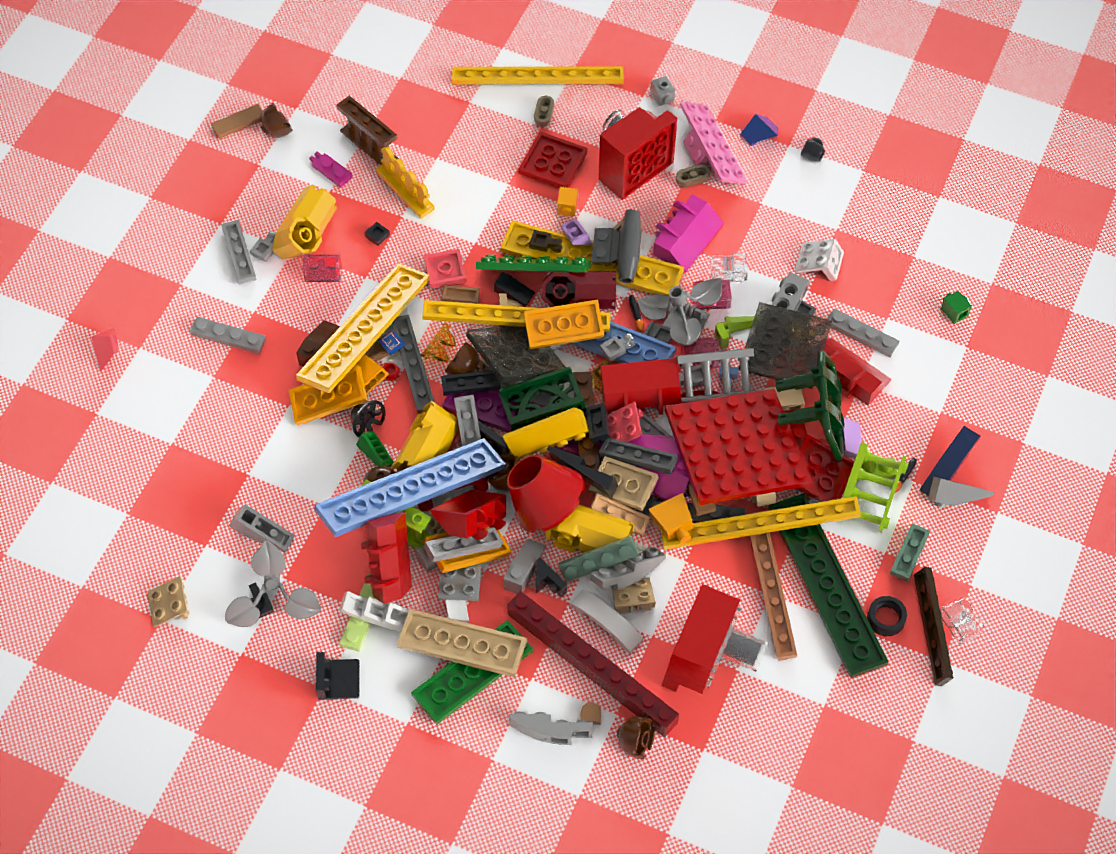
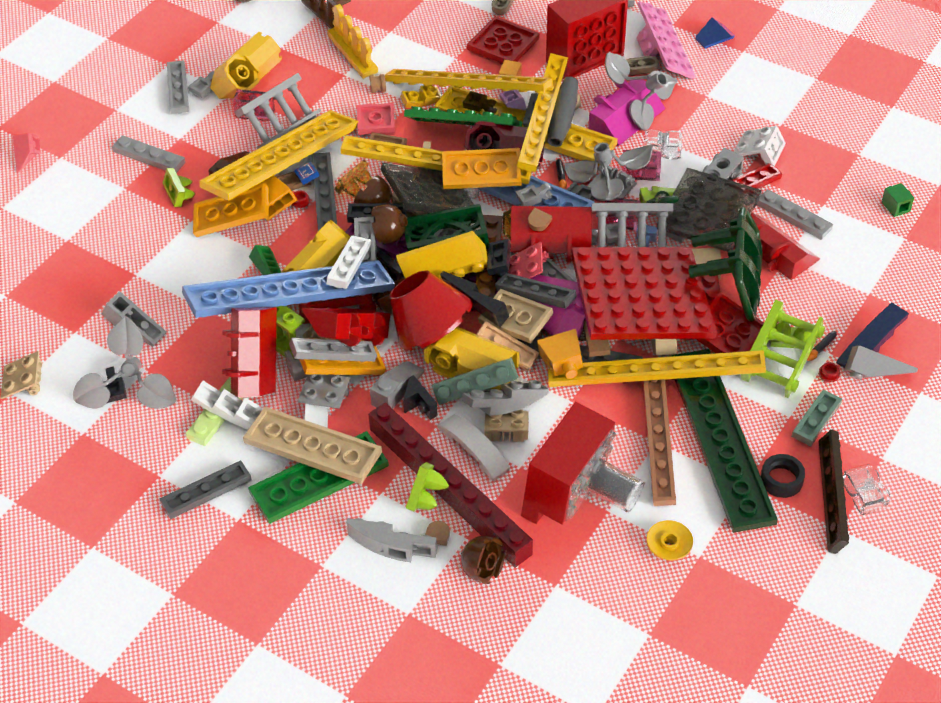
camera: 10 degrees right, 10 degrees down
(263, 370) = (175, 187): none -> lime tile
(330, 169) = (285, 30): dark pink hinge -> none
(333, 269) = (262, 101): none -> light grey fence
(337, 678) = (172, 465): black bracket -> none
(365, 416) = (264, 233): black wheel -> none
(371, 698) = (205, 489): none -> dark grey plate
(377, 233) = (316, 84): black plate -> none
(438, 226) = (377, 83): none -> medium nougat wheel
(459, 449) = (348, 262): none -> white plate
(484, 237) = (426, 96): none -> yellow slope
(488, 398) = (388, 223): none -> reddish brown cylinder
(514, 289) = (439, 140): black slope -> none
(533, 220) = (471, 80): none -> yellow plate
(577, 667) = (429, 479): none -> lime tile
(612, 254) = (542, 115): none -> yellow plate
(629, 379) = (539, 220): none -> medium nougat tile
(715, 202) = (657, 81): none -> light grey plant
(736, 335) = (664, 197): none -> dark green plant
(801, 687) = (673, 533): none -> yellow dish
(813, 149) = (766, 55): black piece -> none
(822, 298) = (760, 177): none -> tile
(852, 438) = (767, 298): lavender slope -> none
(915, 503) = (829, 372): none -> red plate

